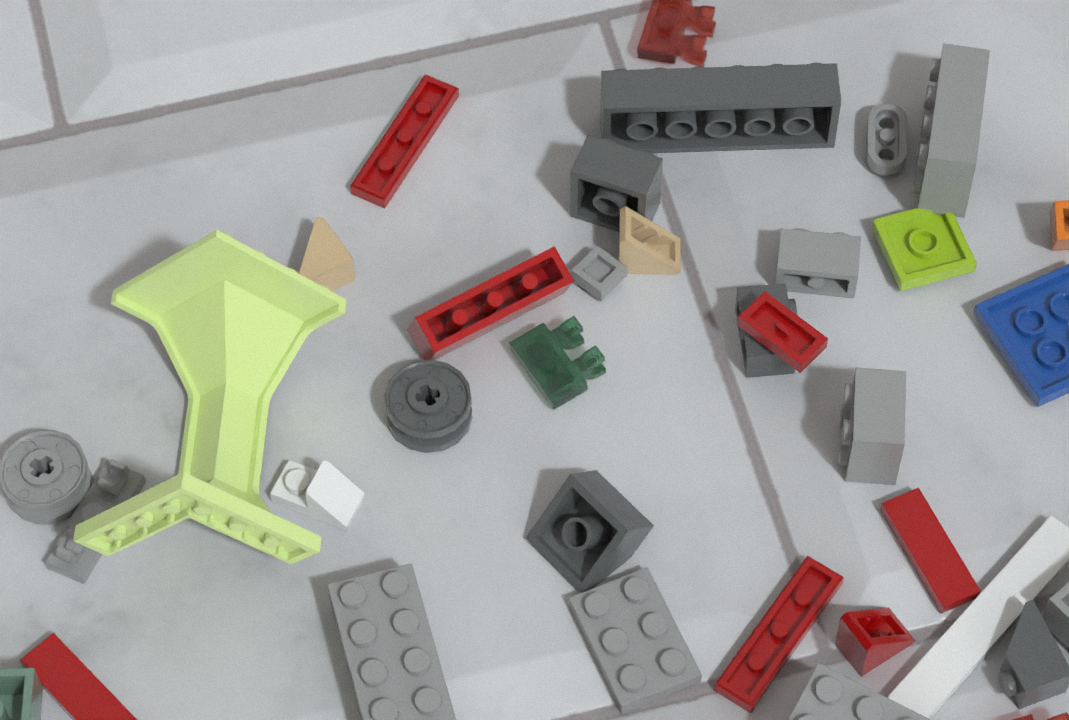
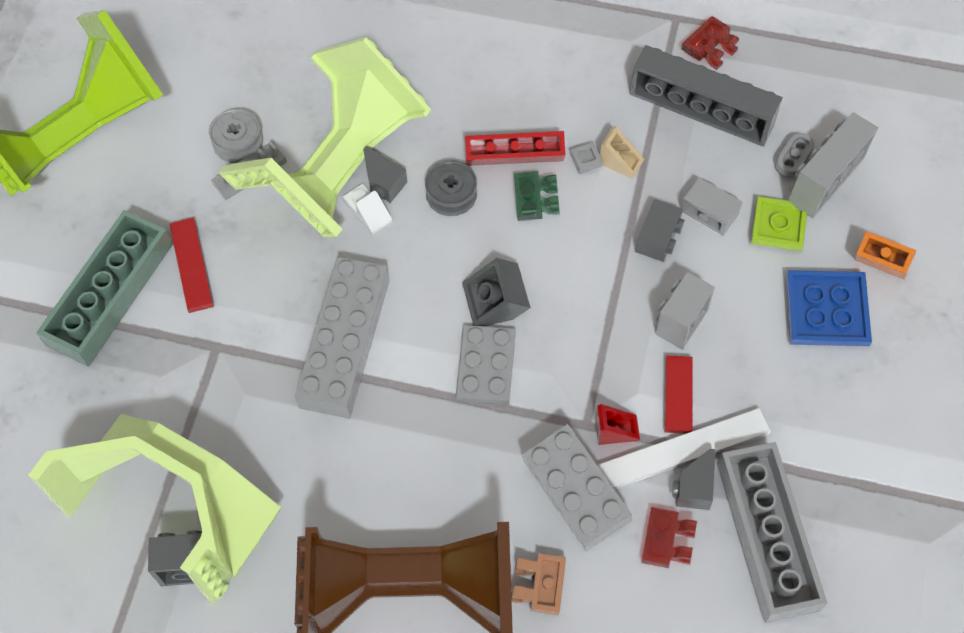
camera: 30 degrees right, 5 degrees up
(312, 431) = (384, 175): none -> dark grey slope
(326, 258) = (441, 87): tan slope -> none
(404, 141) = (526, 41): red tile -> none
(613, 177) = (620, 107): dark grey brick -> none
(778, 634) = (566, 399): red tile -> none
(782, 331) = (662, 234): red plate -> none

